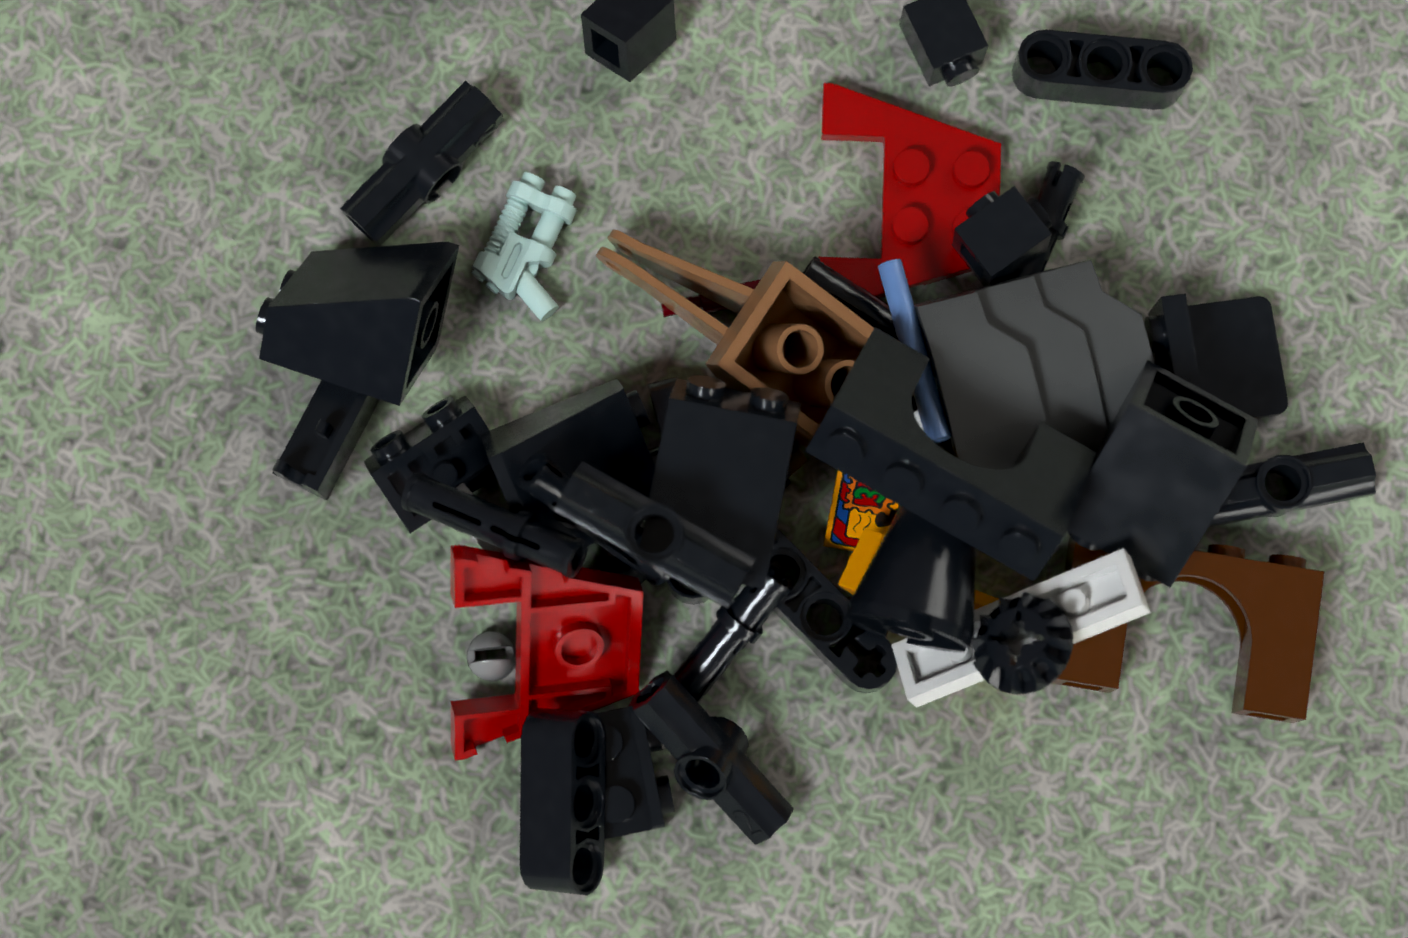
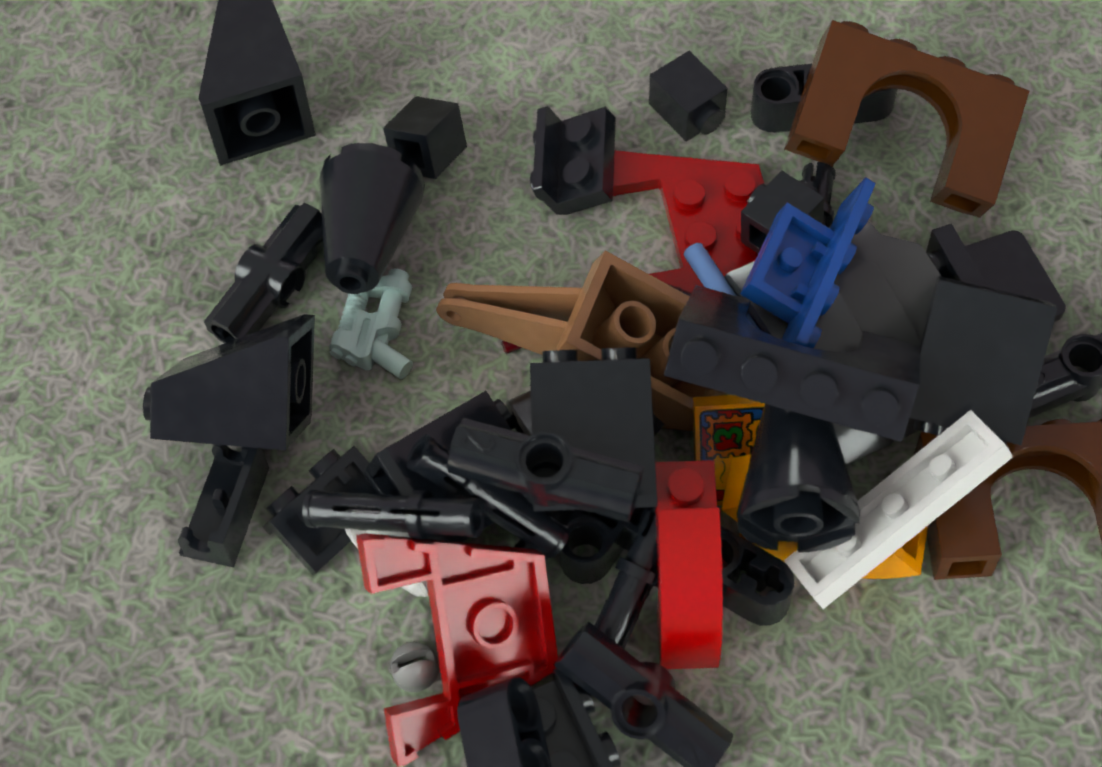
camera: 10 degrees left, 20 degrees down
(537, 127) = (365, 212): none -> black cone
(790, 626) = (688, 565): none -> red arch
(792, 91) = (573, 160): none -> black bracket
(996, 331) = (800, 263): none -> blue bracket
(1038, 662) = (926, 517): black gear -> none
(1264, 149) = (976, 109): none -> reddish brown arch

